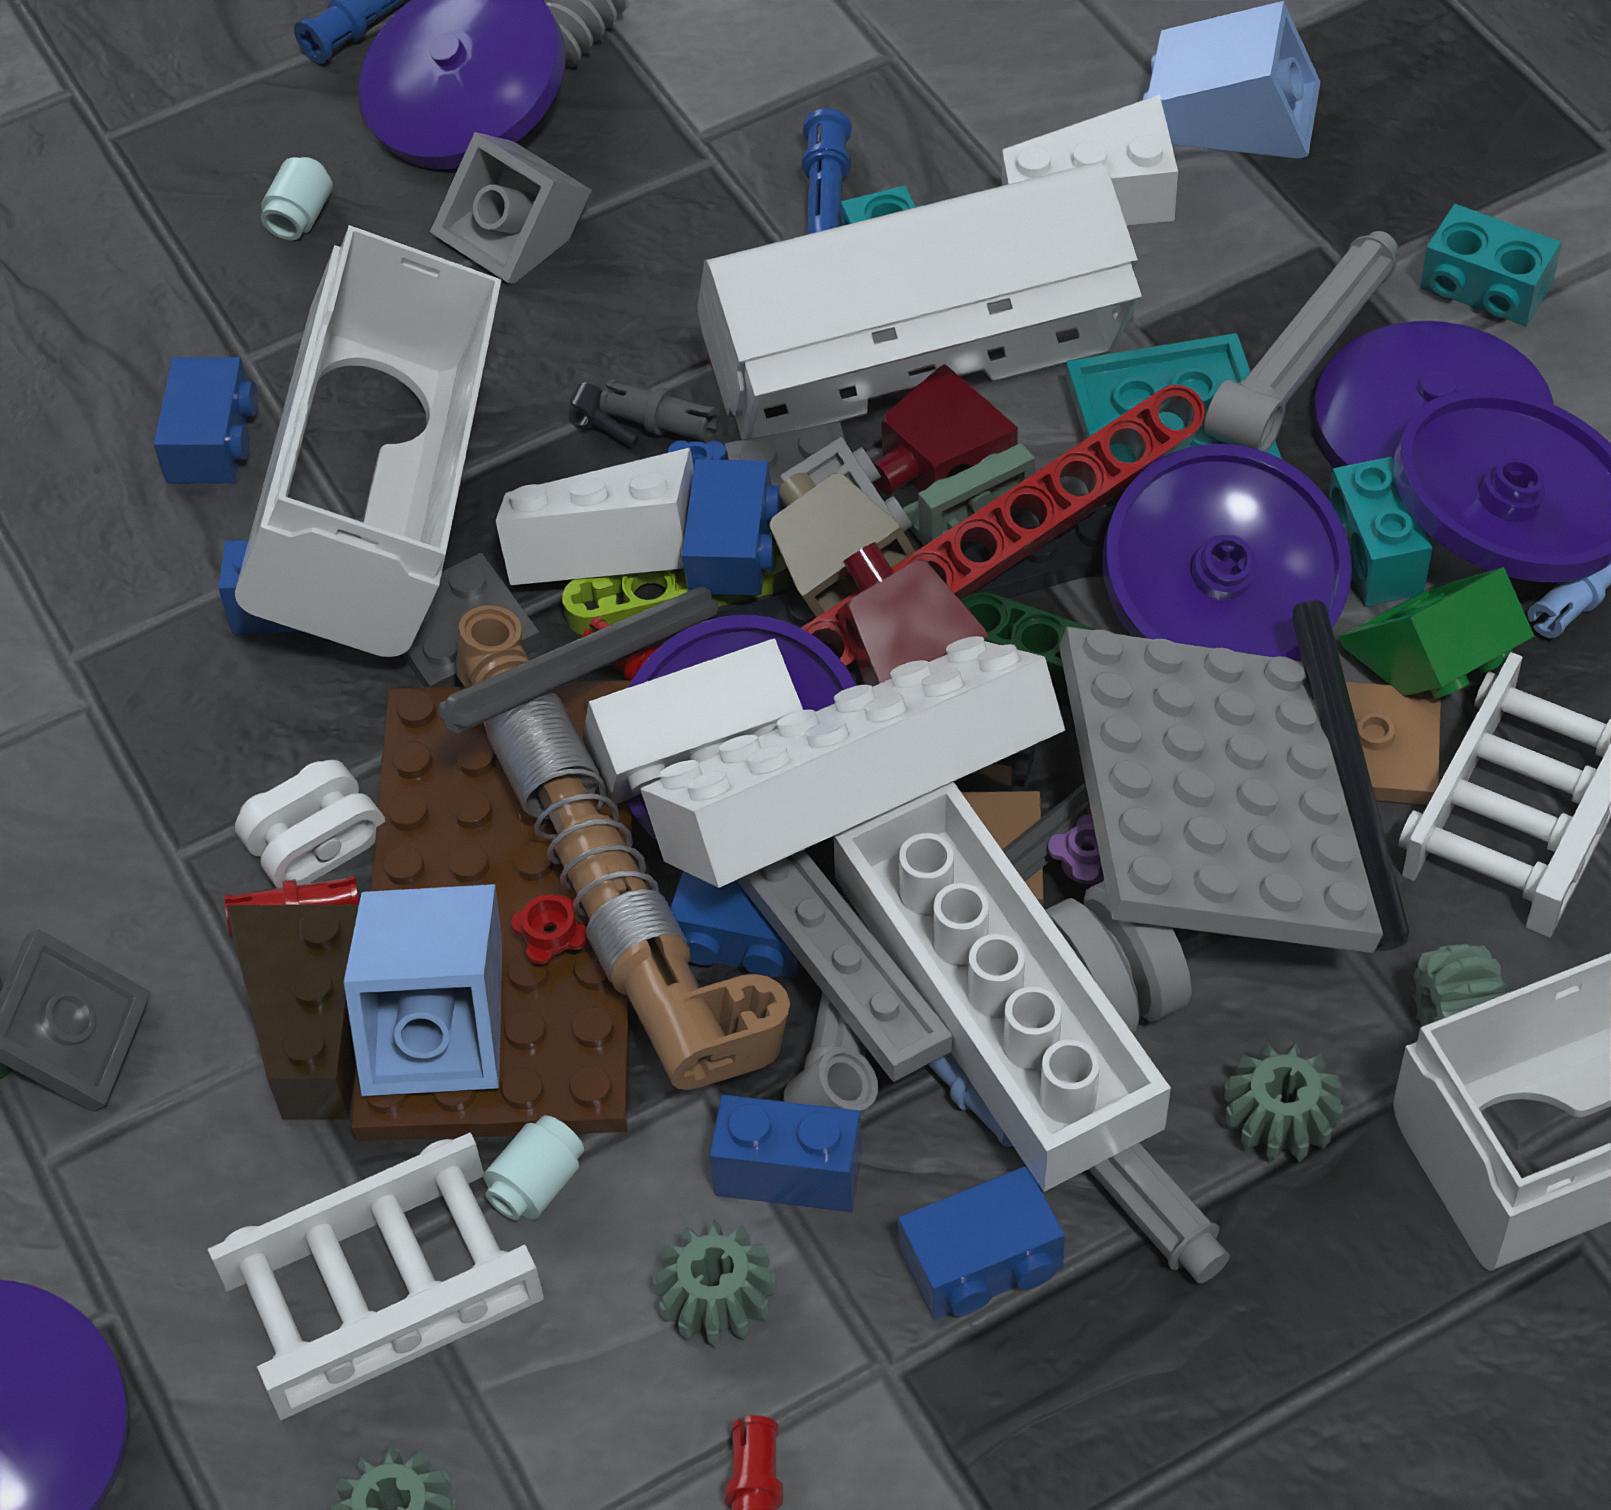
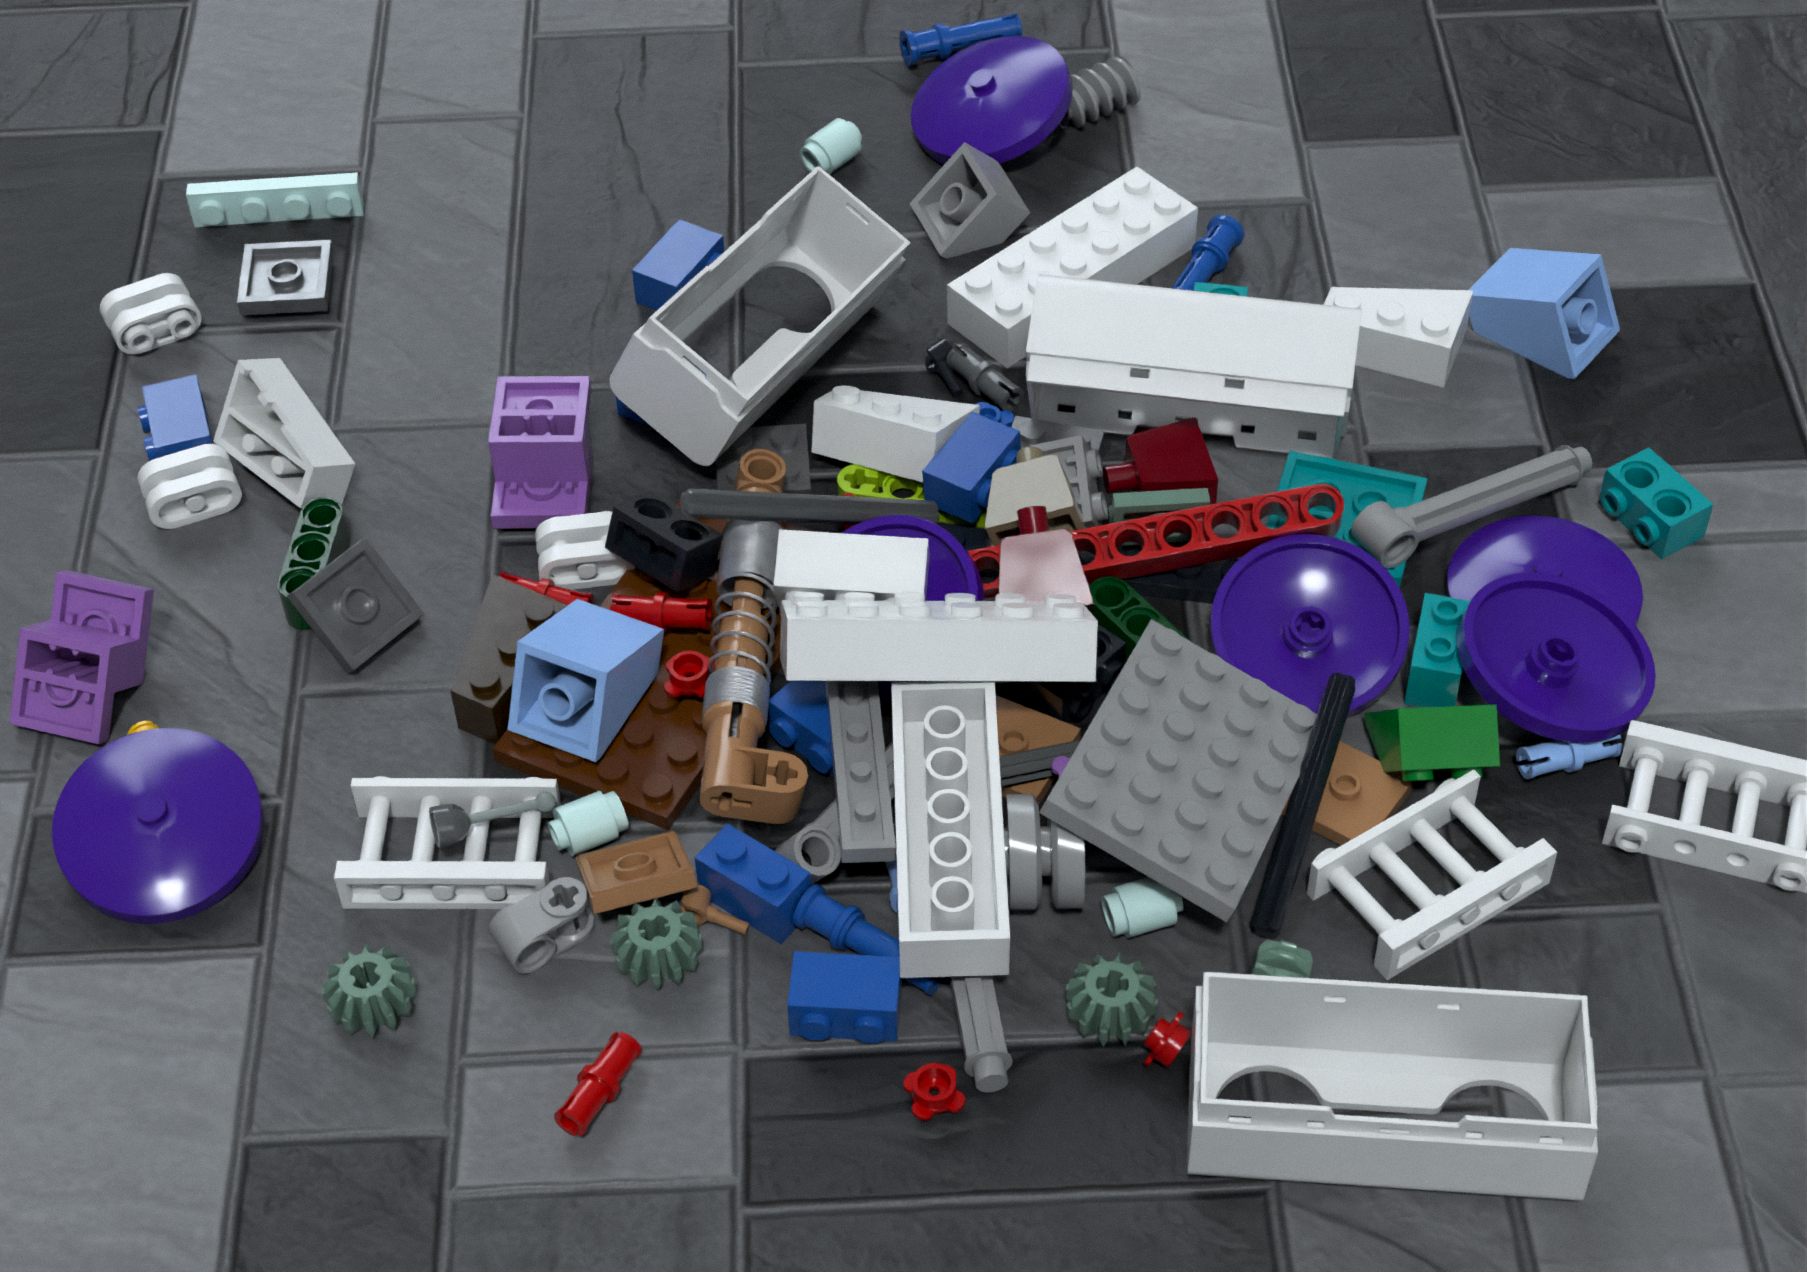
camera: 25 degrees right, 5 degrees down
(183, 720) = (540, 449): none -> medium lavender bracket
(376, 1251) = (452, 823): none -> hinge
(418, 773) = (663, 541): none -> black brick
(468, 860) = (665, 611): none -> red pin
(555, 1334) = (540, 928): none -> light grey piece
(635, 1205) = (635, 871): none -> medium nougat plate
(690, 204) = (1110, 237): none -> white brick
(728, 1210) = (698, 902): none -> medium nougat hand
(927, 1157) = (848, 929): none -> blue pin
(1156, 1290) = (929, 1078): none -> red plate
(1244, 977) = (1140, 907): none -> light aqua brick
(1374, 1123) = (1166, 1040): none -> red plate

